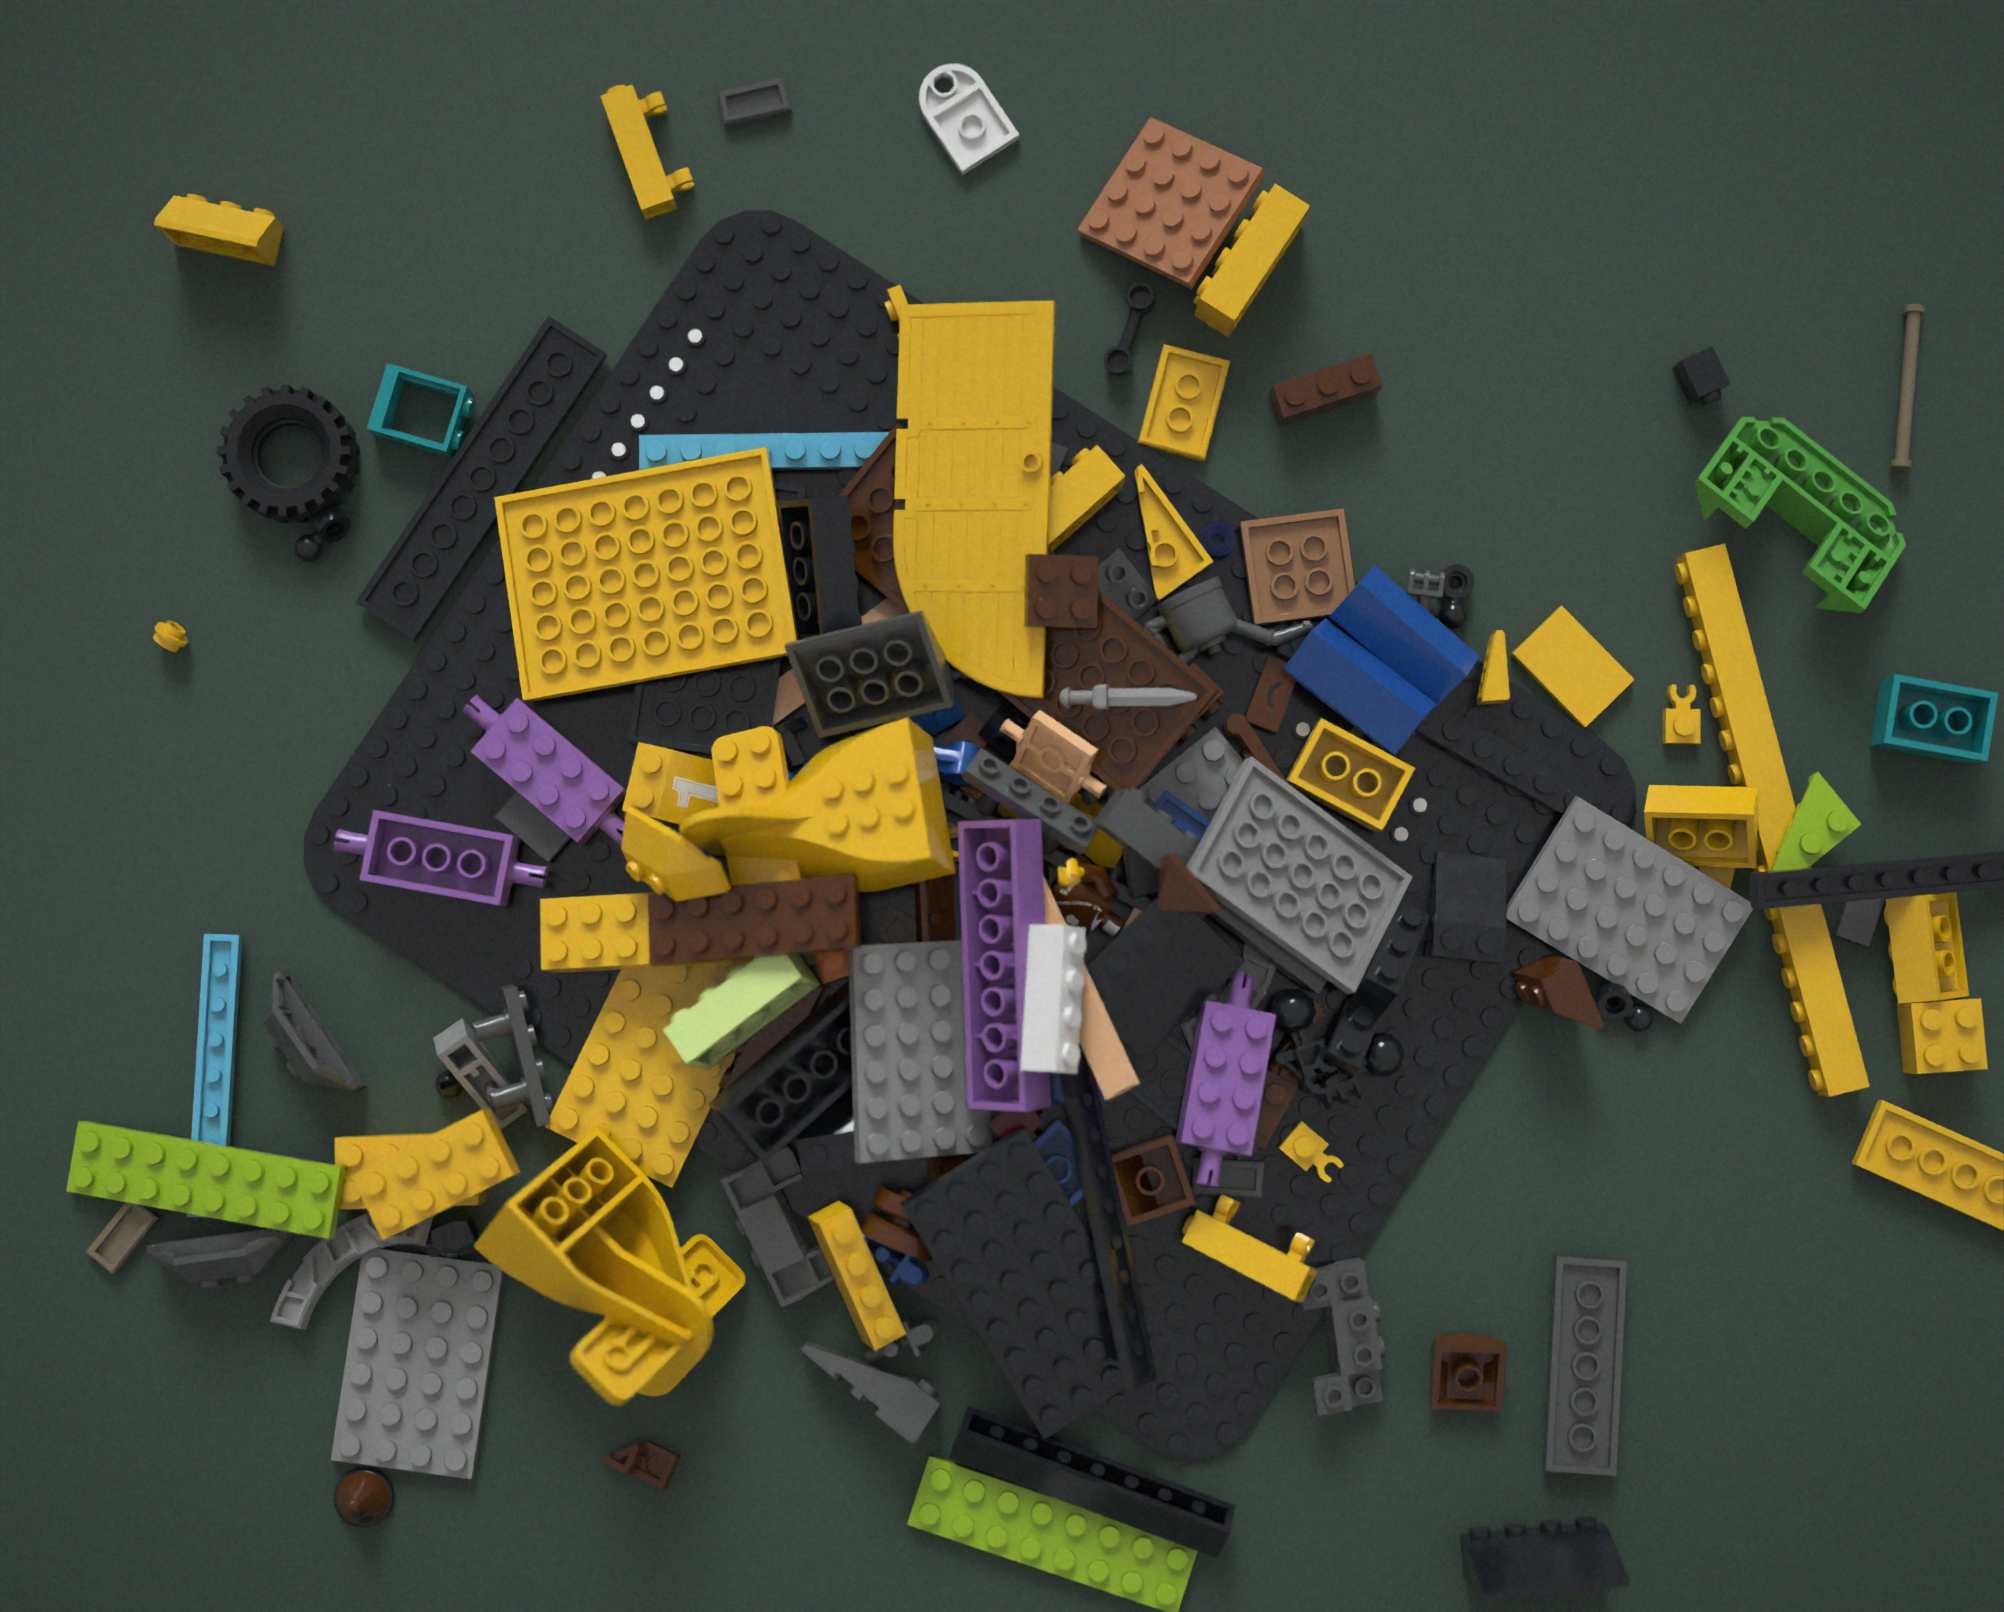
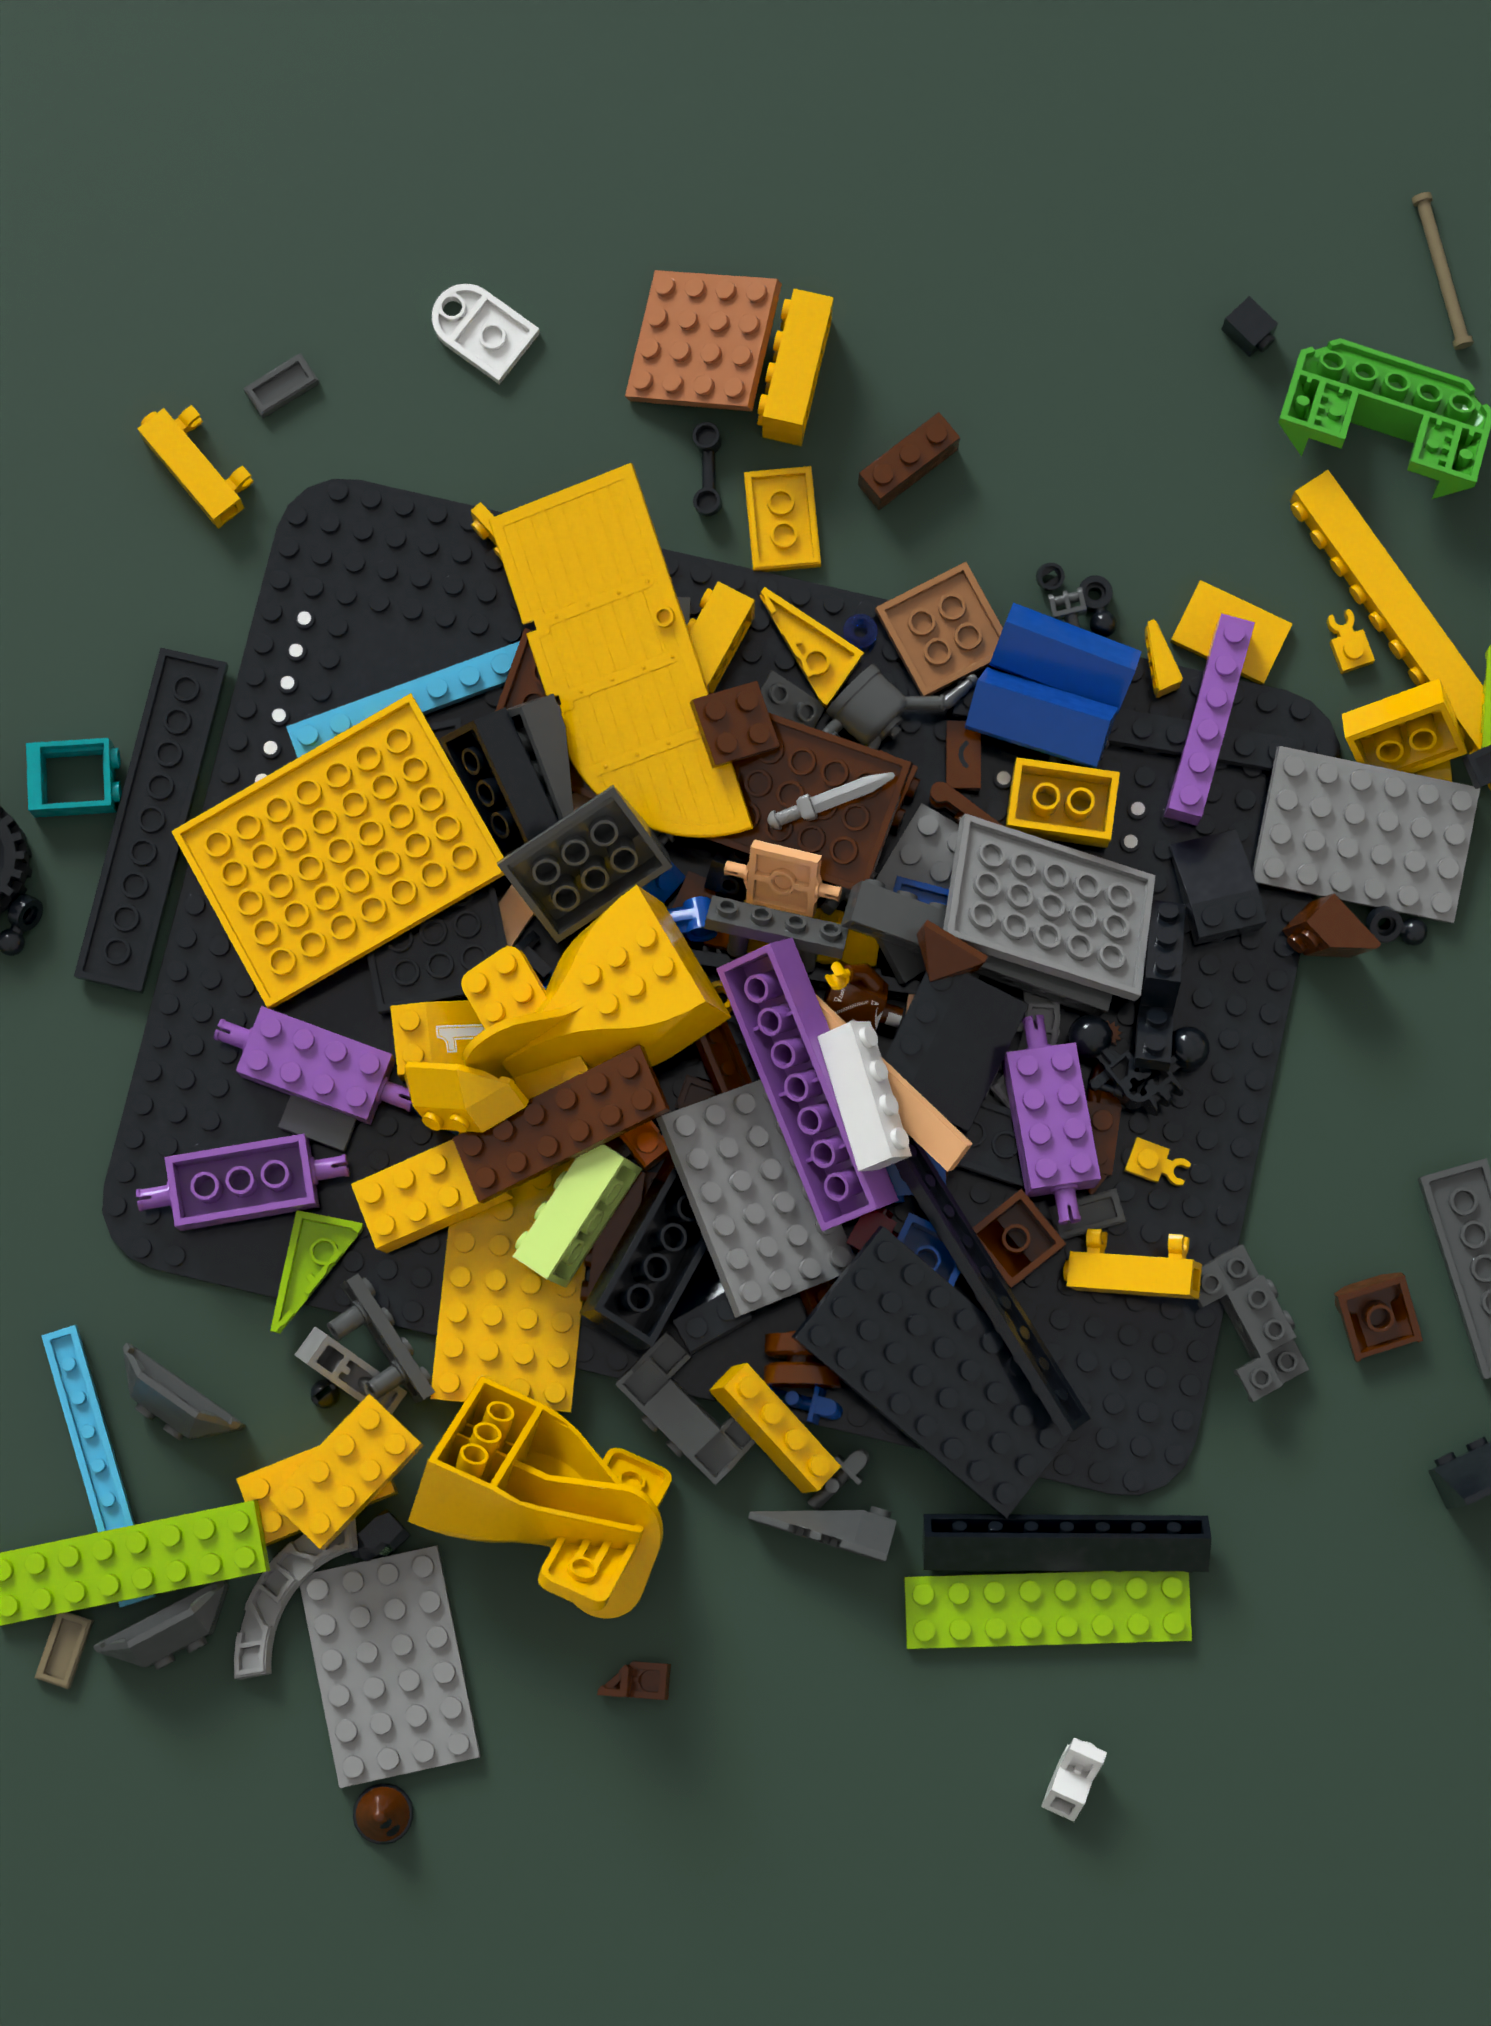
camera: 15 degrees left, 5 degrees down
(484, 948) = (312, 1252): none -> lime wing
(876, 537) = (545, 739): none -> dark grey wedge
(1420, 557) = (1052, 583): none -> black hinge
(1521, 745) = (1209, 719): none -> medium lavender arch

